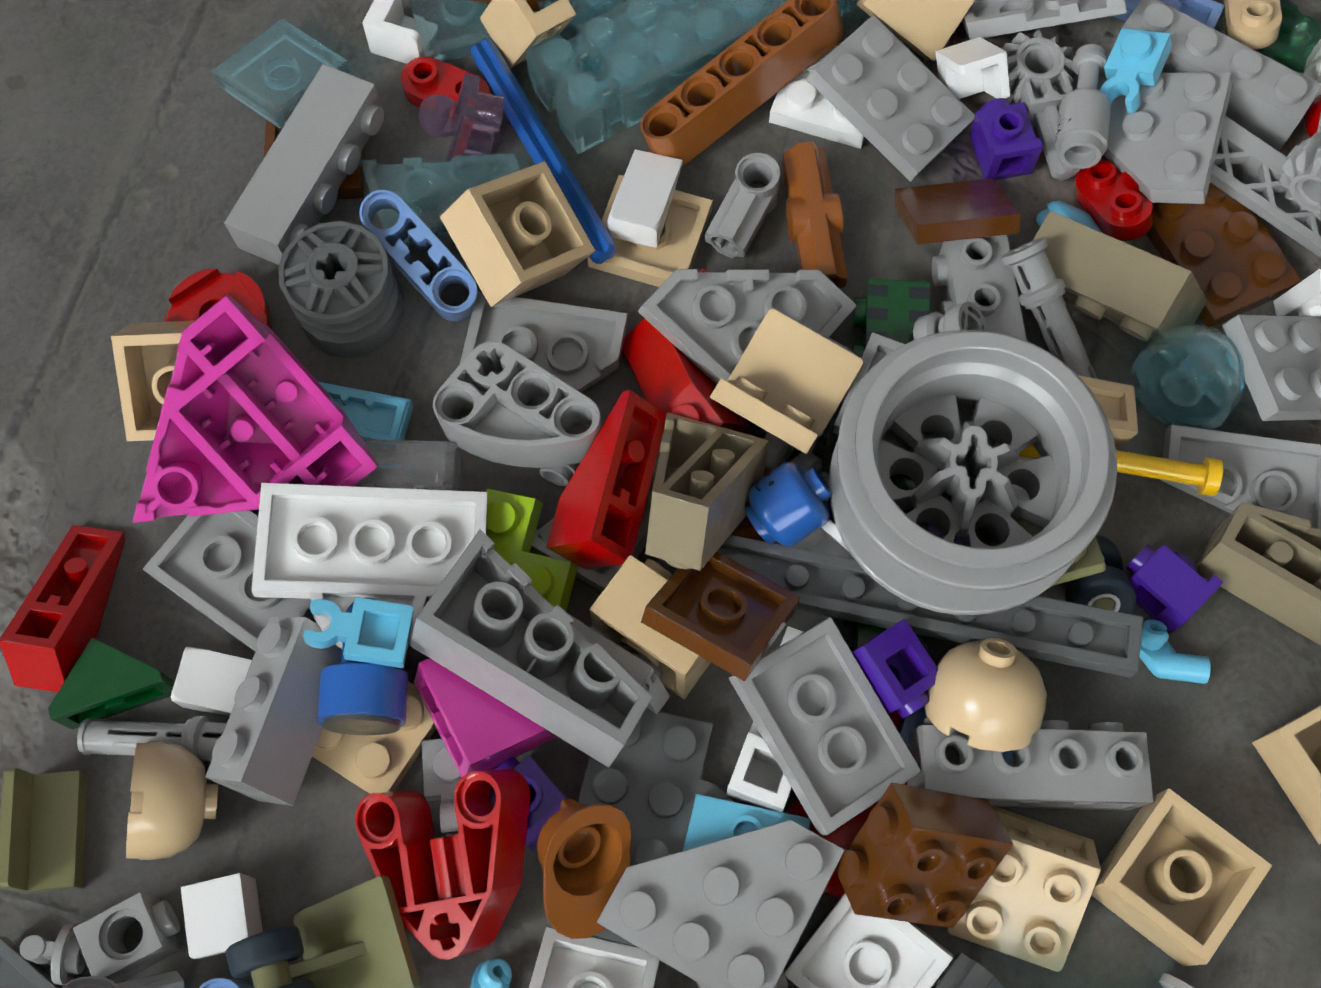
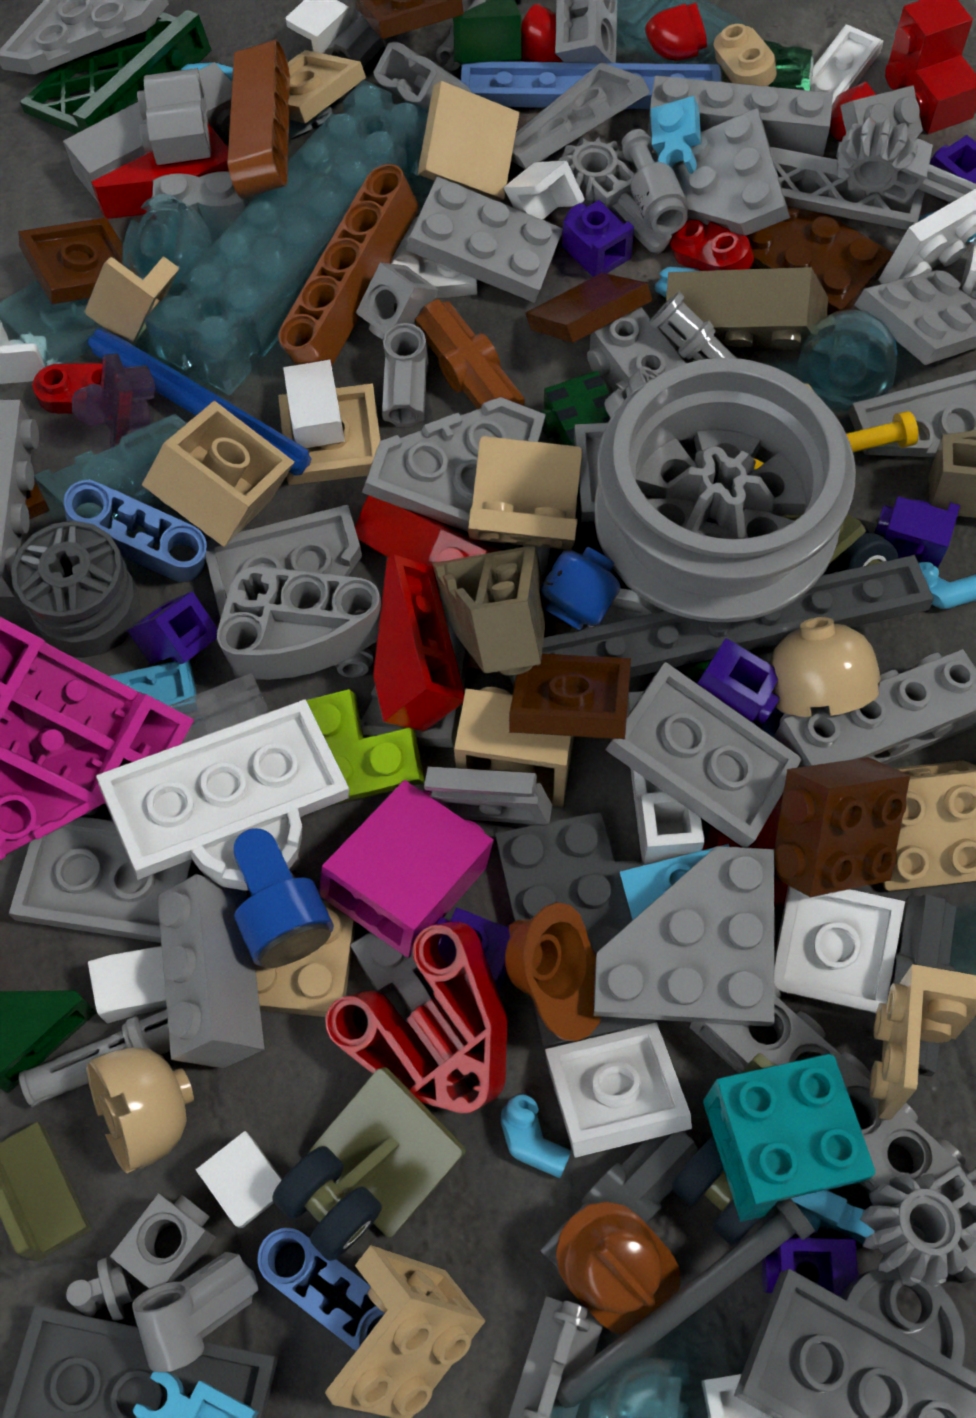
camera: 25 degrees left, 5 degrees down
(372, 633) = (270, 851): medium azure plate -> none
(408, 368) = (174, 630): none -> dark purple brick
(527, 653) = (422, 811): light grey wedge -> none
(773, 124) = (393, 283): none -> light grey brick

